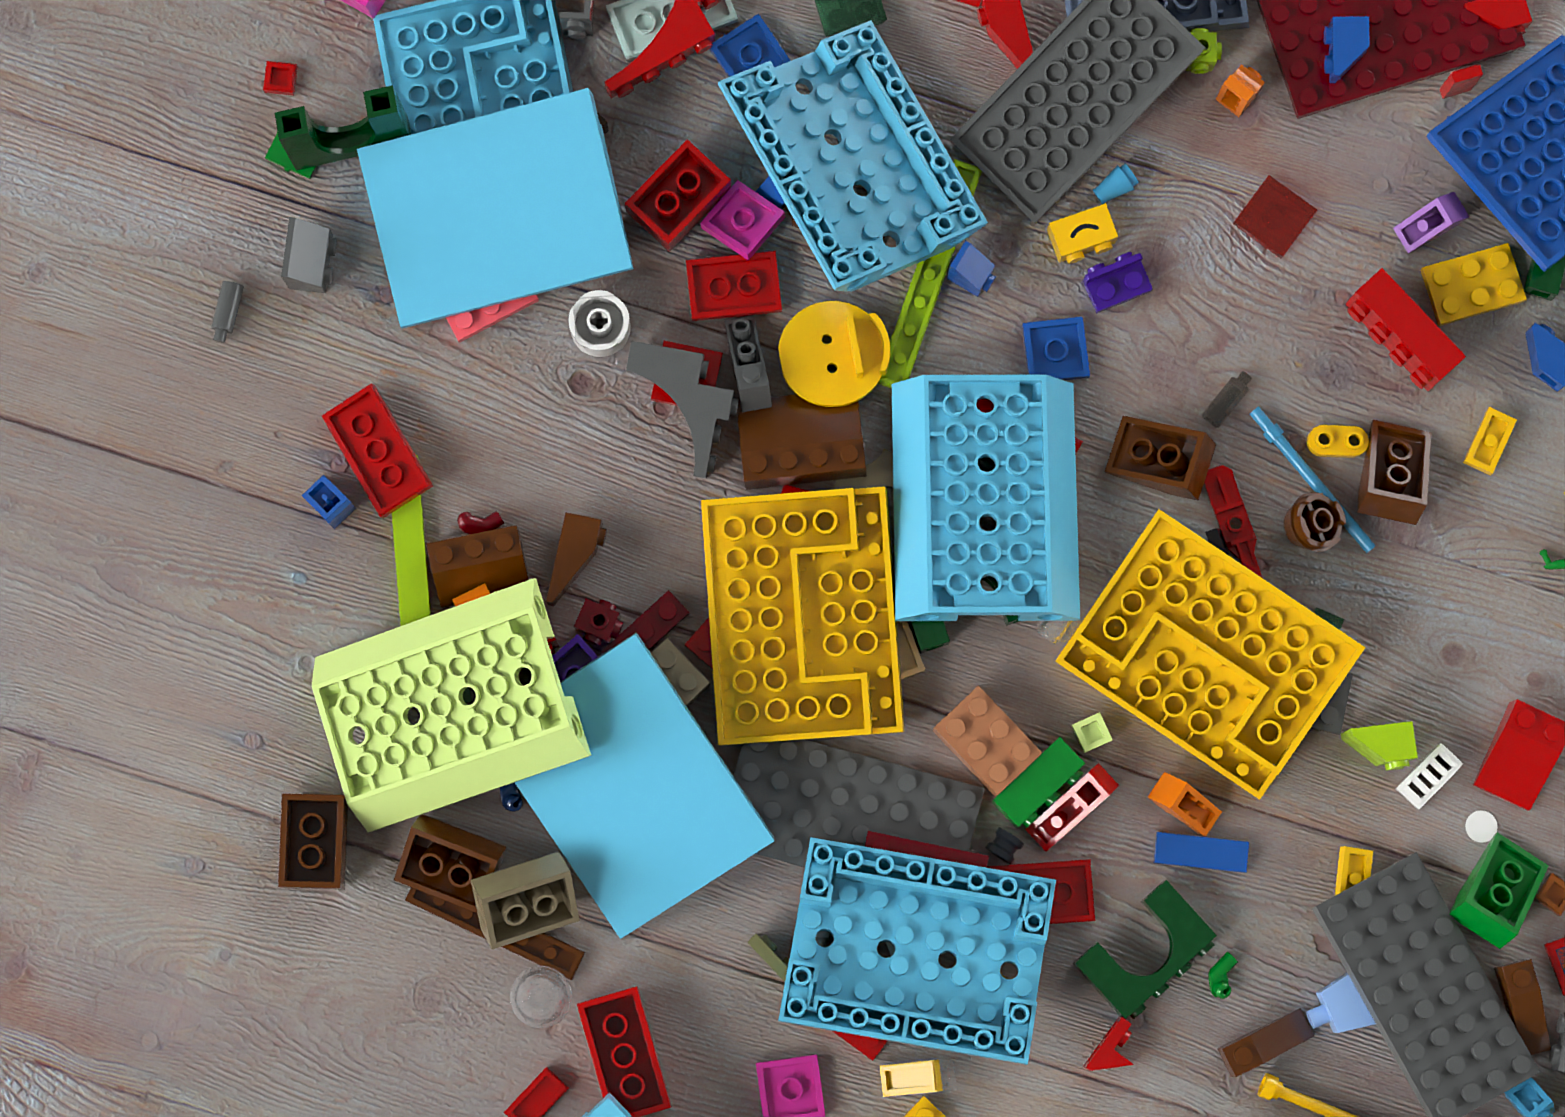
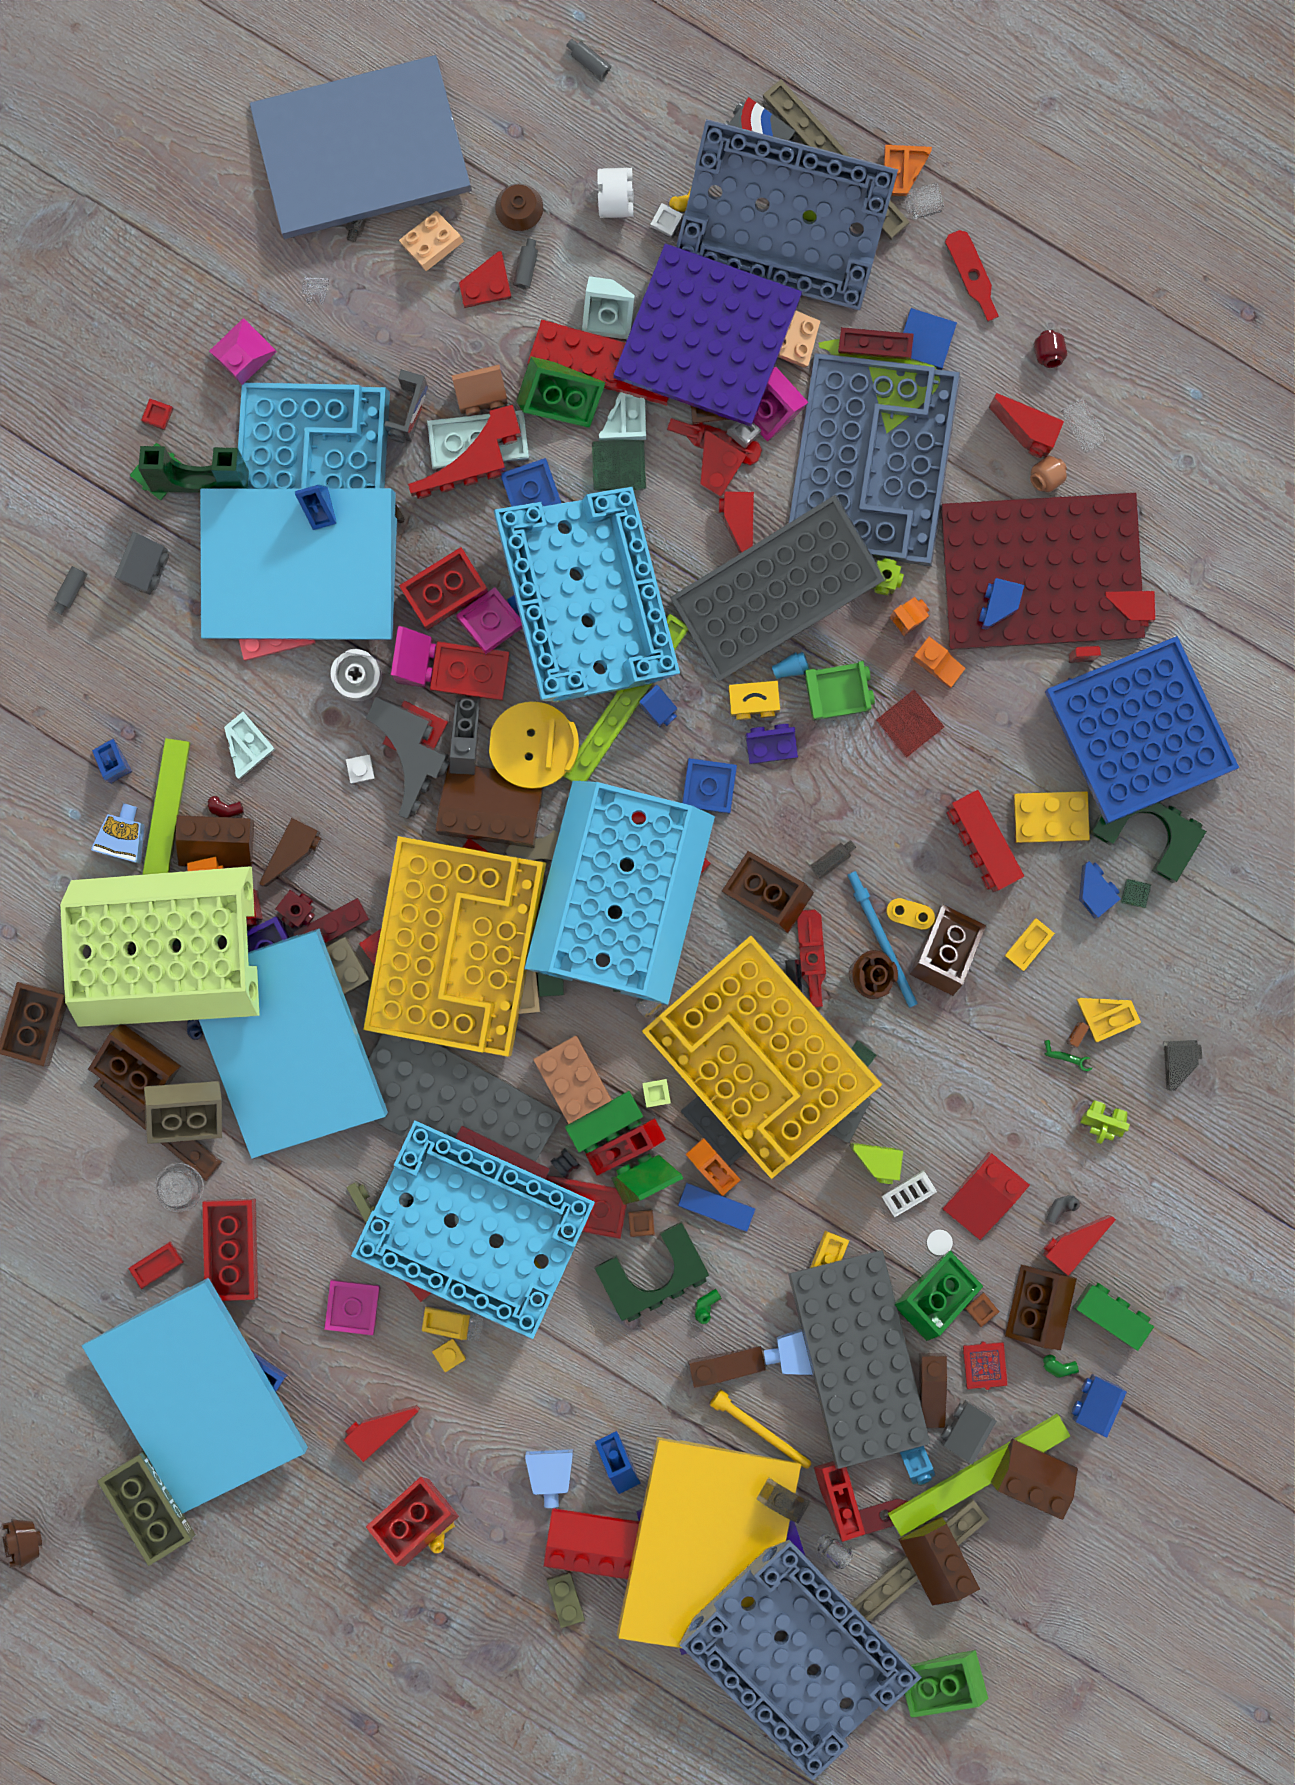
camera: 15 degrees right, 5 degrees up
(363, 588) = (121, 836): none -> torso
(377, 451) = (158, 731): red tile -> none
(487, 440) = (246, 744): none -> light aqua wing
(504, 130) = (317, 506): none -> blue slope
(632, 436) = (360, 769): none -> white plate
(663, 285) = (412, 658): none -> dark pink slope
(1104, 1055) = (599, 1344): red slope -> none
(1107, 837) = (644, 1178): none -> green slope
(1115, 895) = (641, 1223): none -> dark orange tile
(1172, 758) = (713, 1131): none -> black plate
(1180, 199) = (839, 690): none -> bright green panel
(1289, 135) = (938, 662): none -> orange arch
(1431, 221) = (1031, 759): medium lavender slope -> none

